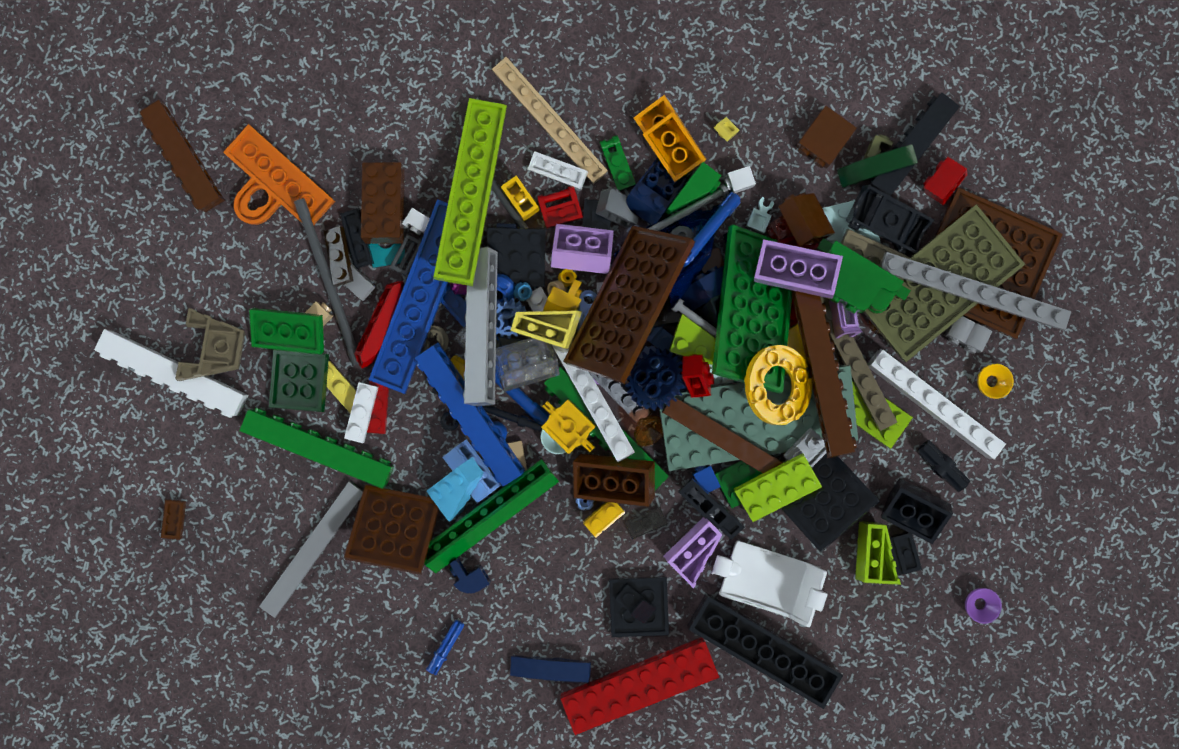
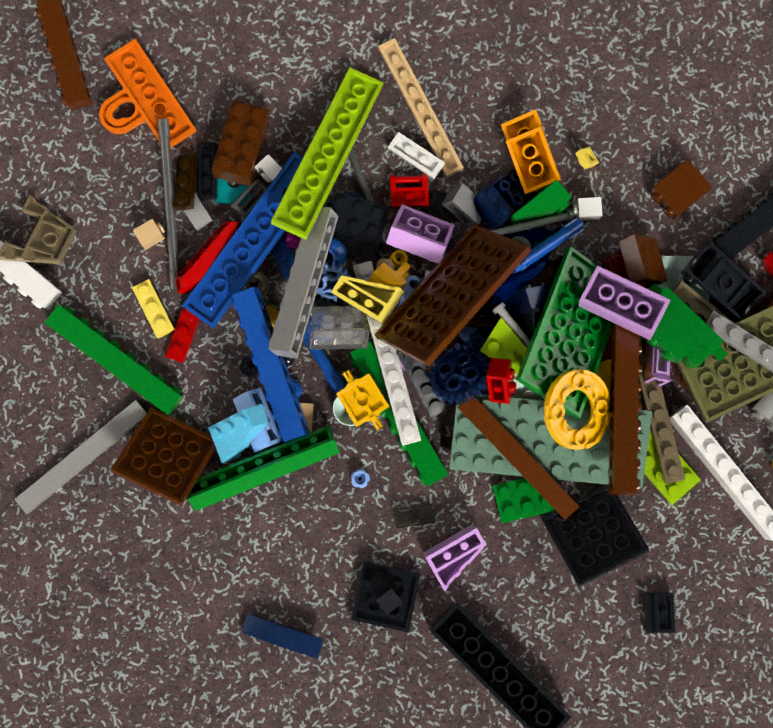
camera: 15 degrees right, 5 degrees down
(287, 330) = (116, 239): green plate -> none
(298, 381) = (114, 290): dark green plate -> none
(361, 412) = (166, 335): white plate -> none
(445, 647) = (185, 587): blue axle -> none
(469, 582) = (226, 528): dark blue brick -> none
(520, 198) = (373, 172): yellow brick -> none
(522, 421) = (319, 384): black bar -> none
(527, 291) = (357, 260): dark azure plate -> none
(603, 517) = (374, 498): yellow brick -> none
(613, 481) = (394, 464): reddish brown brick -> none
(617, 164) = (474, 164): green plate -> none
(639, 686) = (365, 675): red brick -> none
(648, 430) = (441, 429): clear orange piece -> none
(706, 477) = (483, 487): blue brick -> none
(711, 508) = (481, 517): black slope -> none
(759, 218) = (597, 250): light aqua plate -> none
(772, 582) = (523, 606): white panel -> none
(778, 487) = (552, 512): lime plate -> none
(811, 445) = (589, 484): light grey plate -> none
(874, 149) = (724, 211): olive bracket -> none
(874, 555) = (631, 605): lime wedge -> none
(877, 165) = (723, 227): dark green slope -> none
(916, 511) = (683, 572): black slope -> none
(943, 466) = (720, 535): black piece -> none
(991, 609) = (736, 688): medium lavender piece -> none

